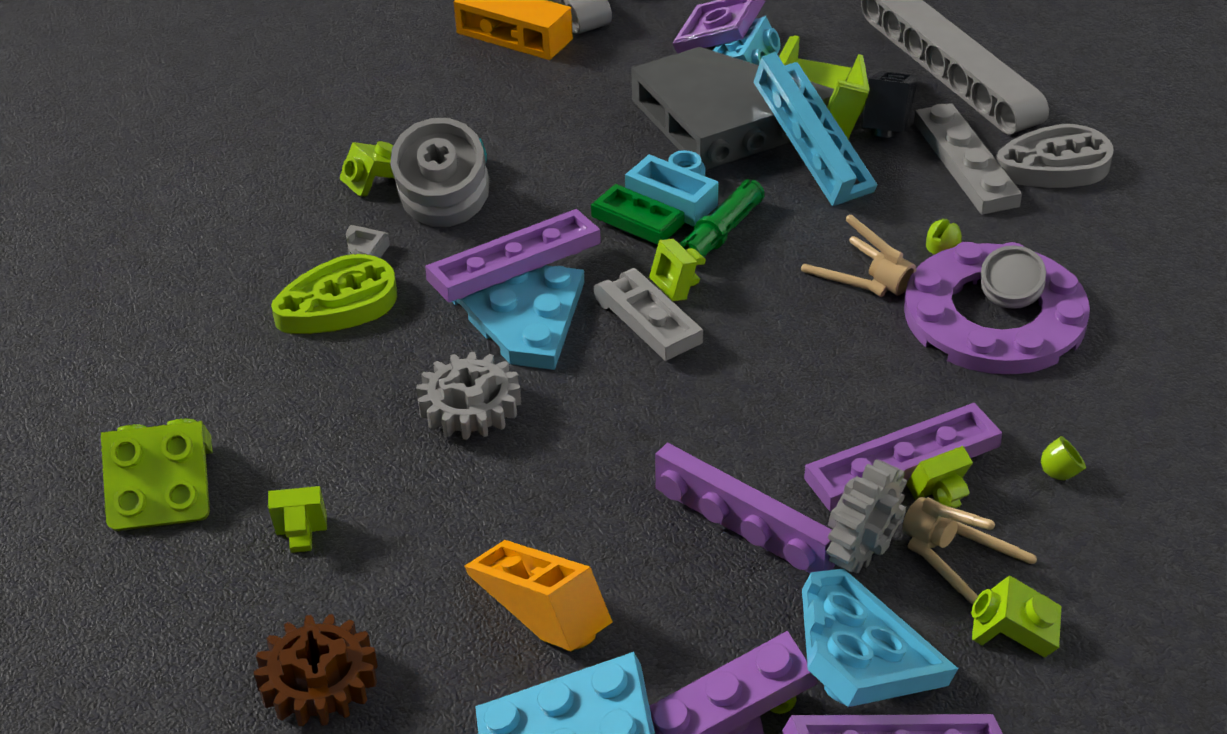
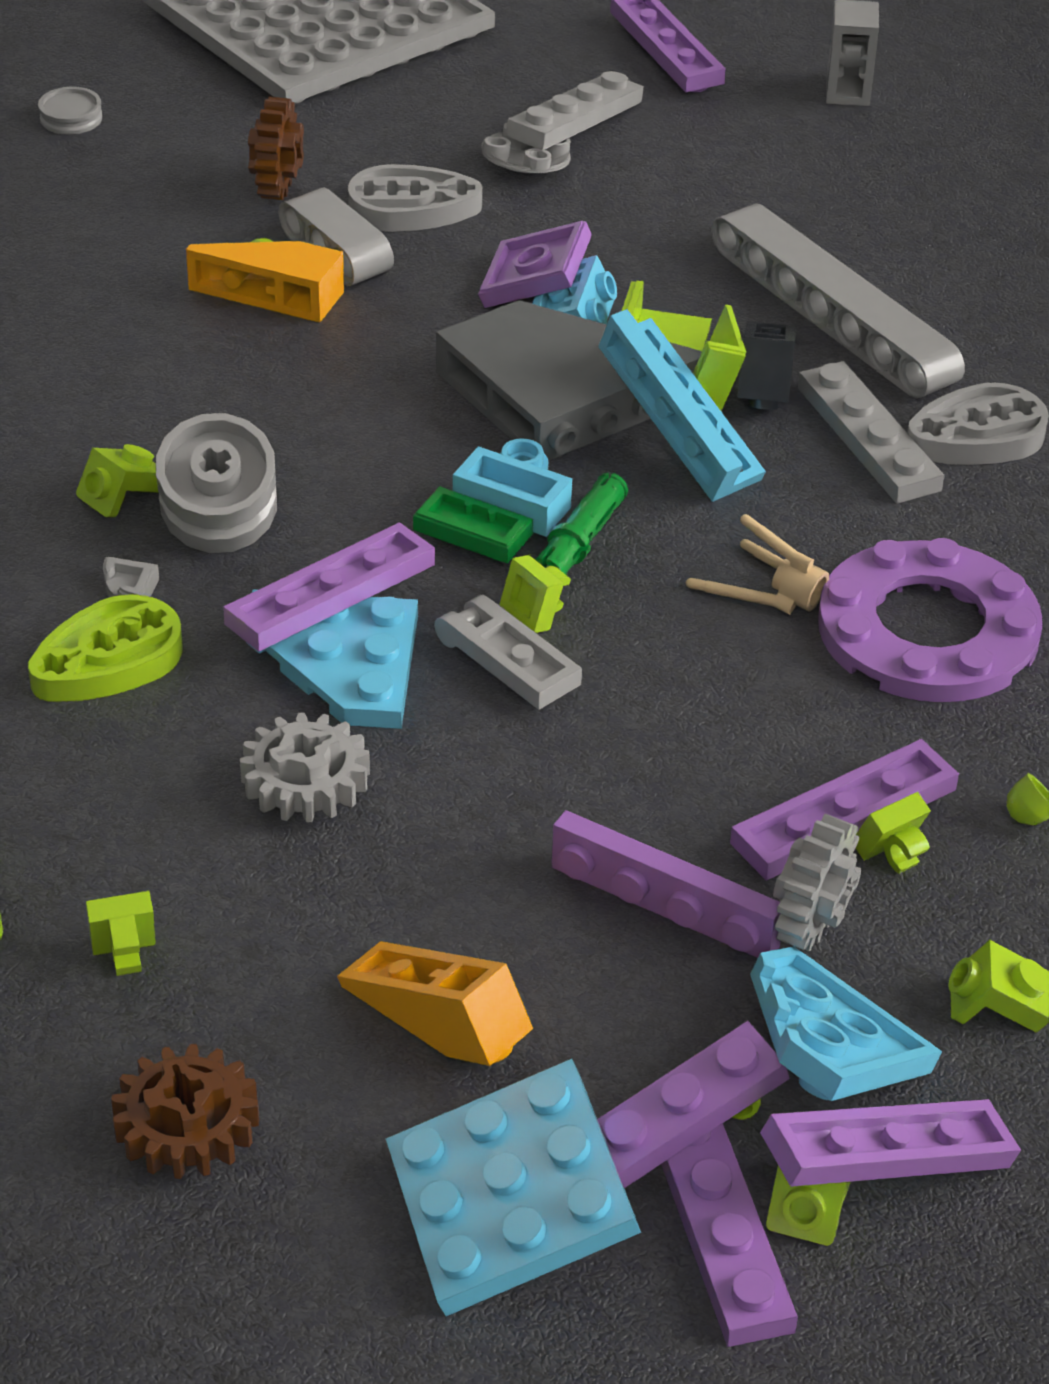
camera: 10 degrees left, 0 degrees up
(936, 525) = (895, 886): tan plant -> none
(942, 236) = (861, 528): lime hinge -> none
(1013, 276) = (948, 581): light grey piece -> none

